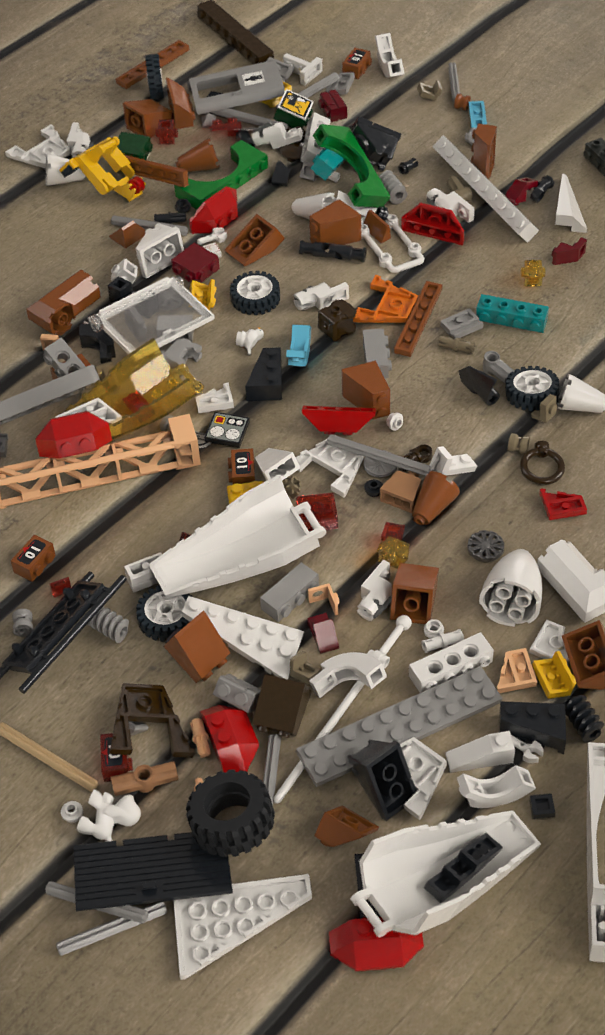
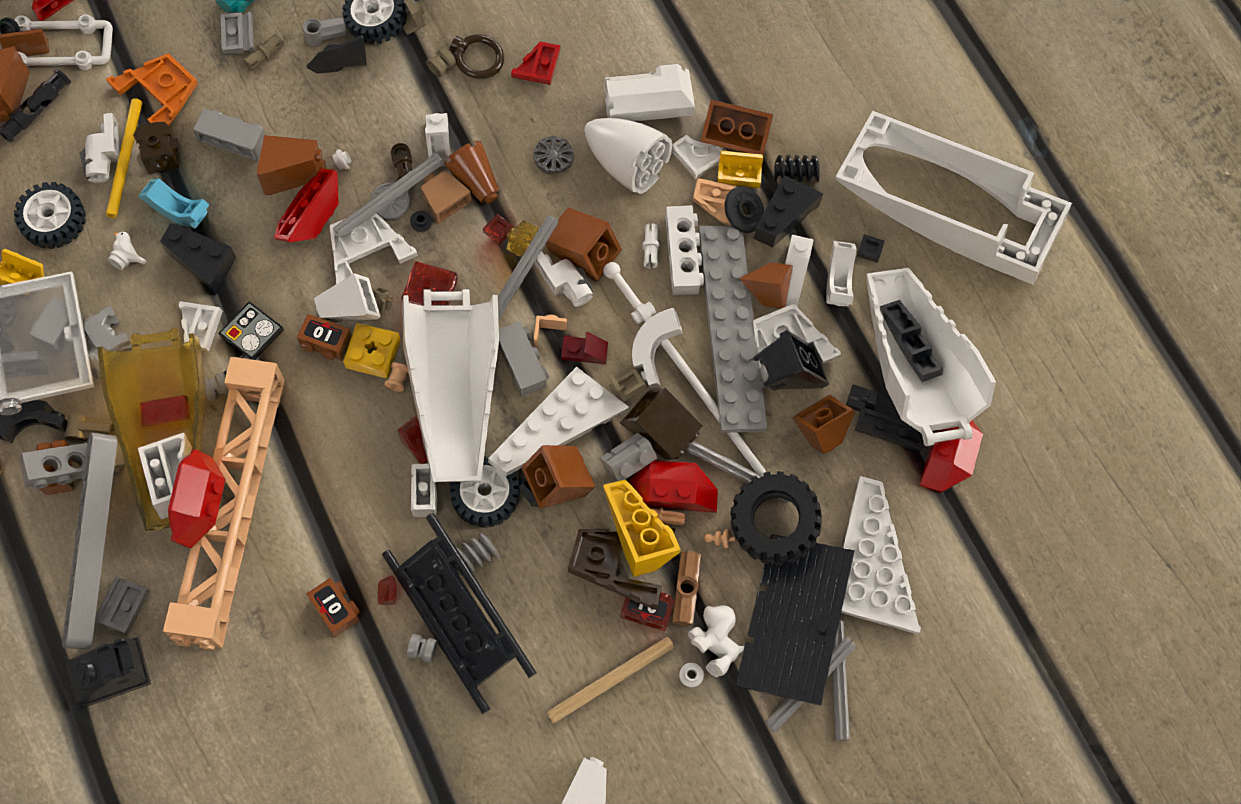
camera: 75 degrees left, 20 degrees up
(175, 717) = (642, 534): none -> yellow wedge
(314, 312) = (123, 159): none -> yellow piece
(360, 558) = (525, 263): none -> light grey axle
(418, 319) = (202, 69): dark orange plate -> none
(433, 625) = (632, 242): white plate -> none
(455, 735) = (769, 284): none -> dark orange slope
(520, 679) = (733, 211): none -> black wheel
(527, 749) = (802, 232): white bar -> none

